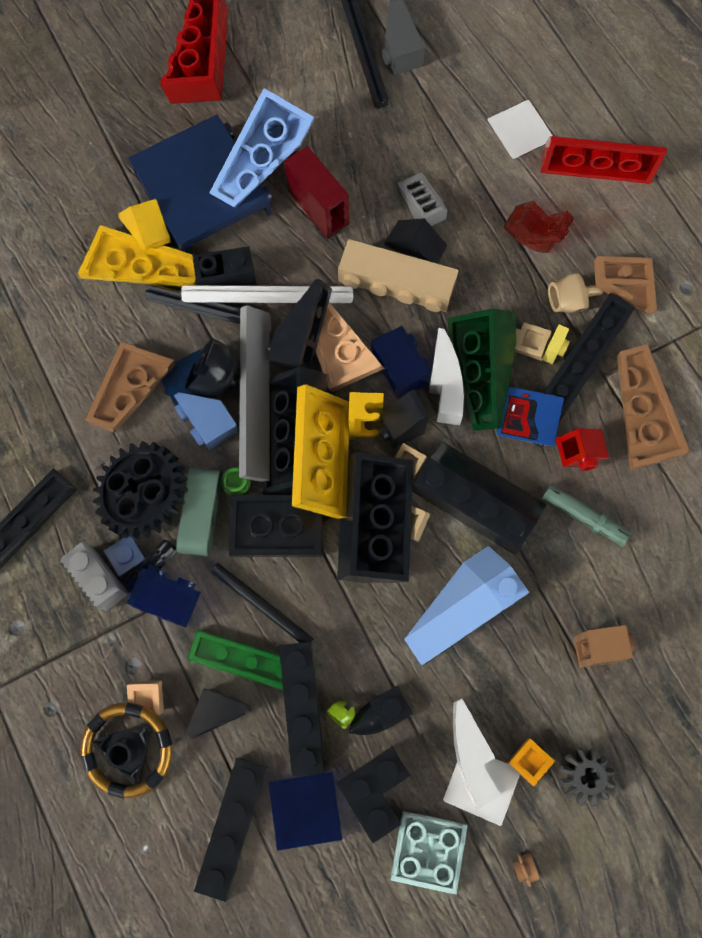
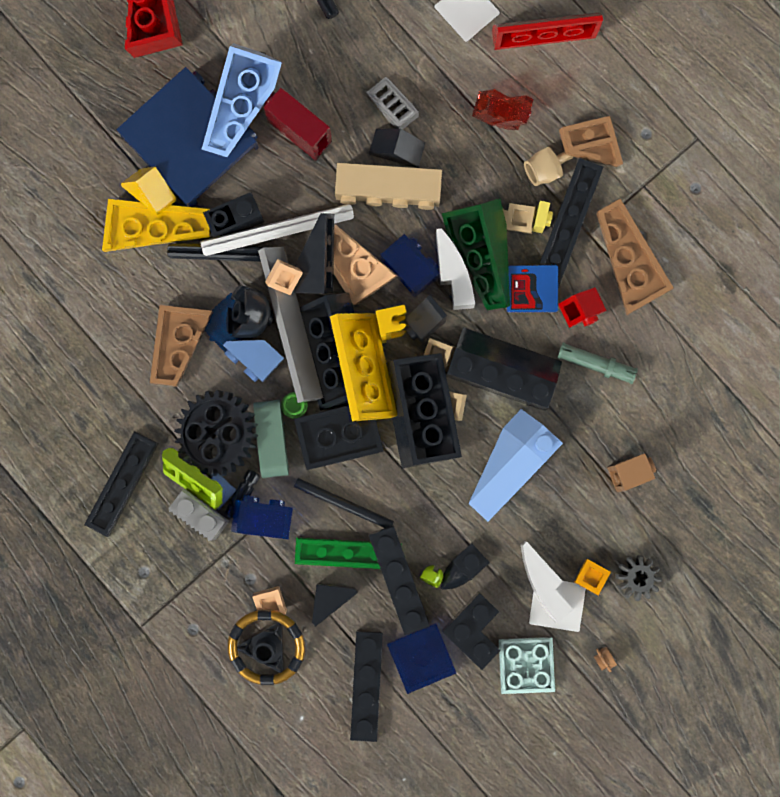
camera: 15 degrees left, 10 degrees up
(98, 533) = (191, 479): none -> lime plate
(259, 338) = (283, 277): none -> light nougat plate

